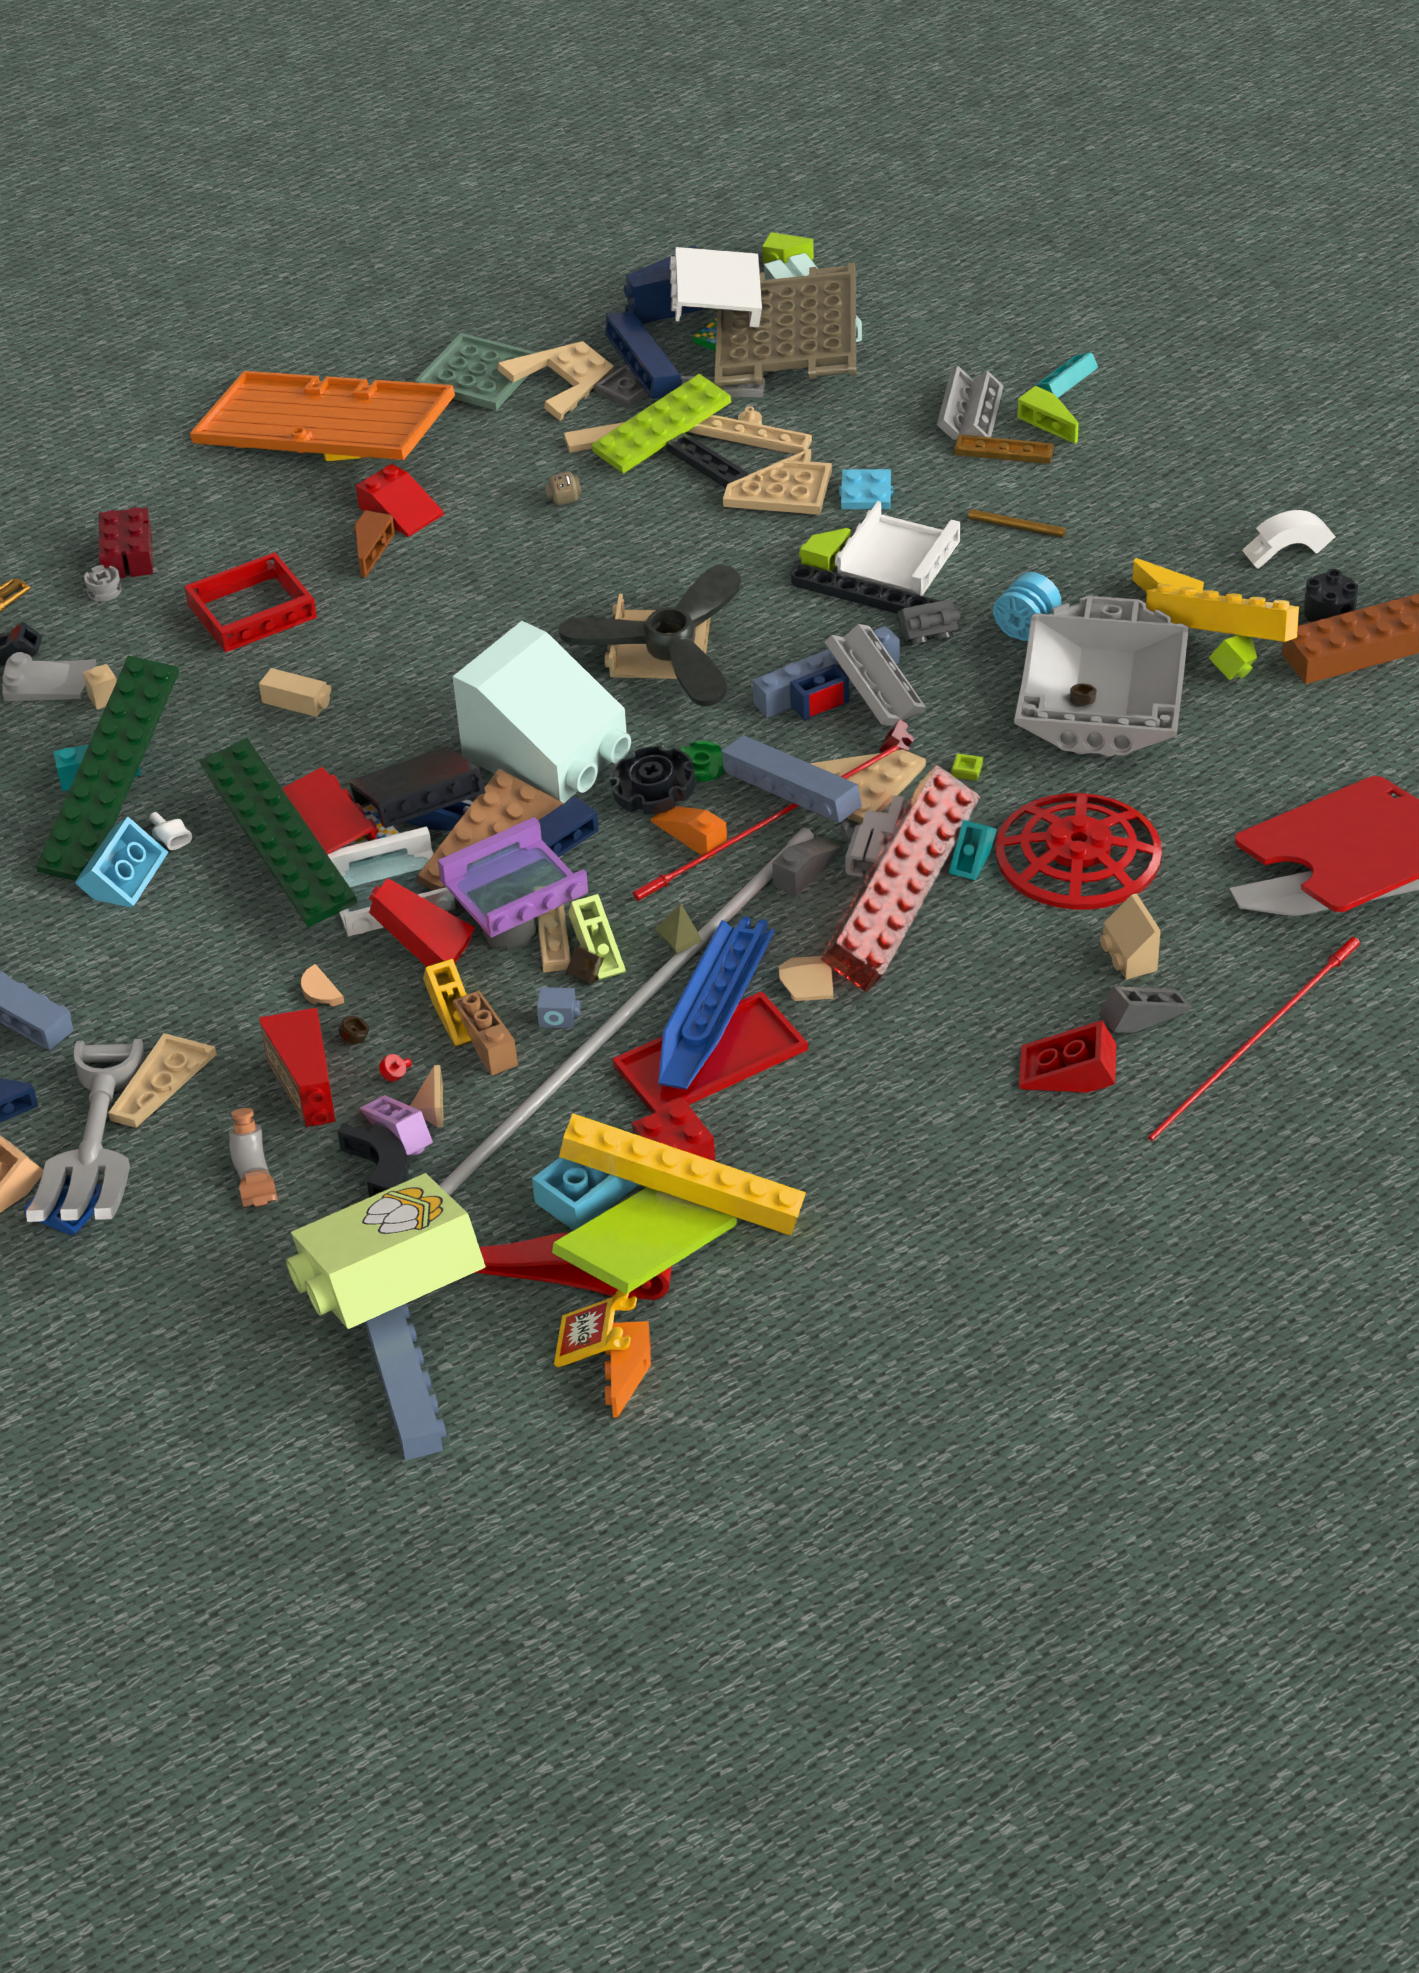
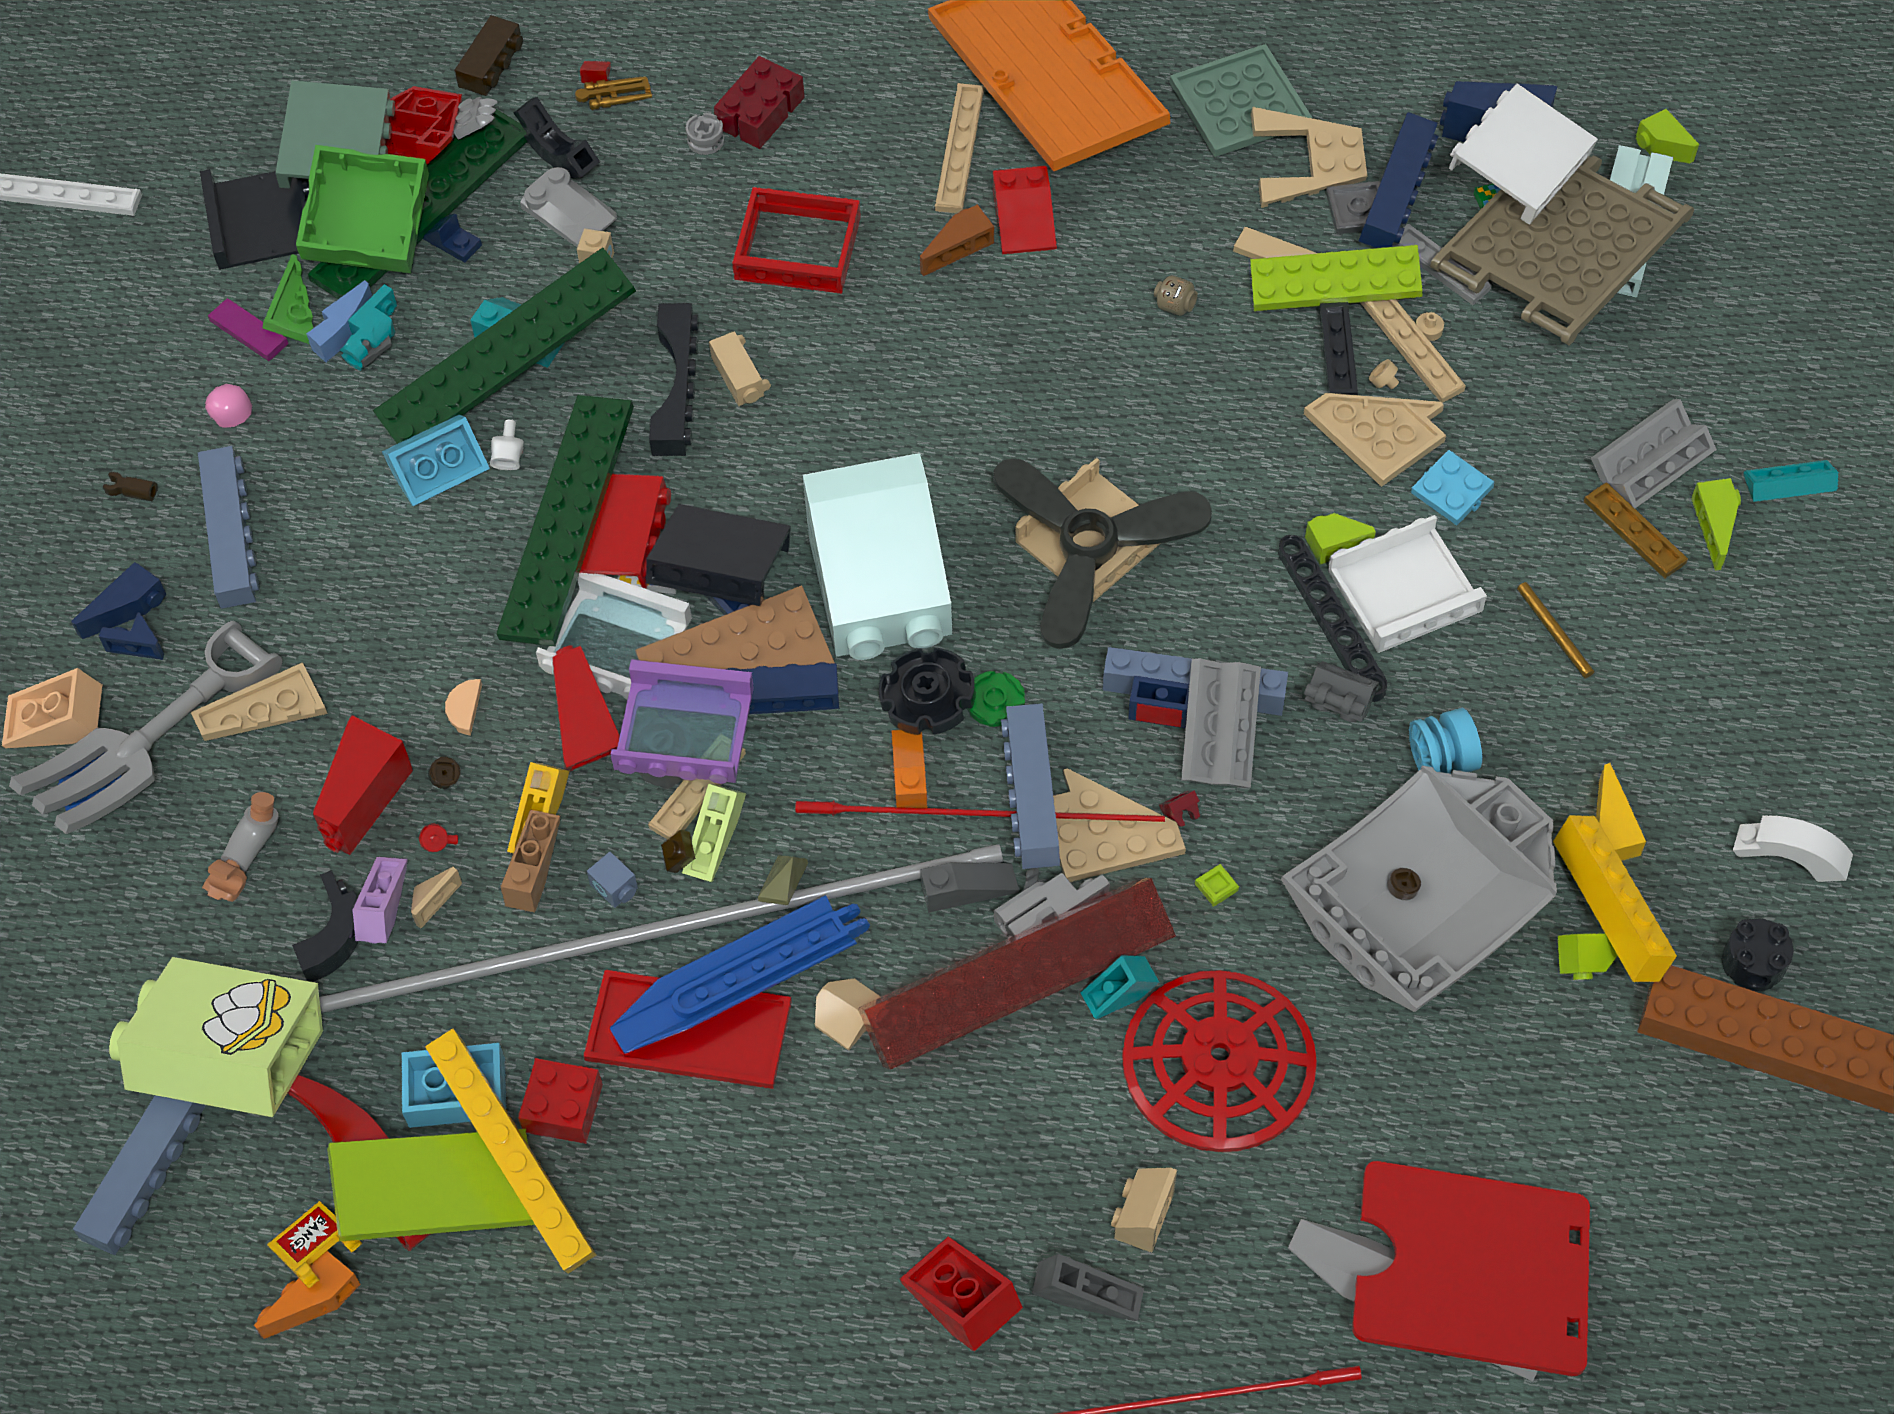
camera: 40 degrees right, 15 degrees up
(224, 698) = (669, 424): none -> black arch
(306, 496) = (959, 148): none -> tan tile
(753, 456) = (1384, 375): none -> tan tile

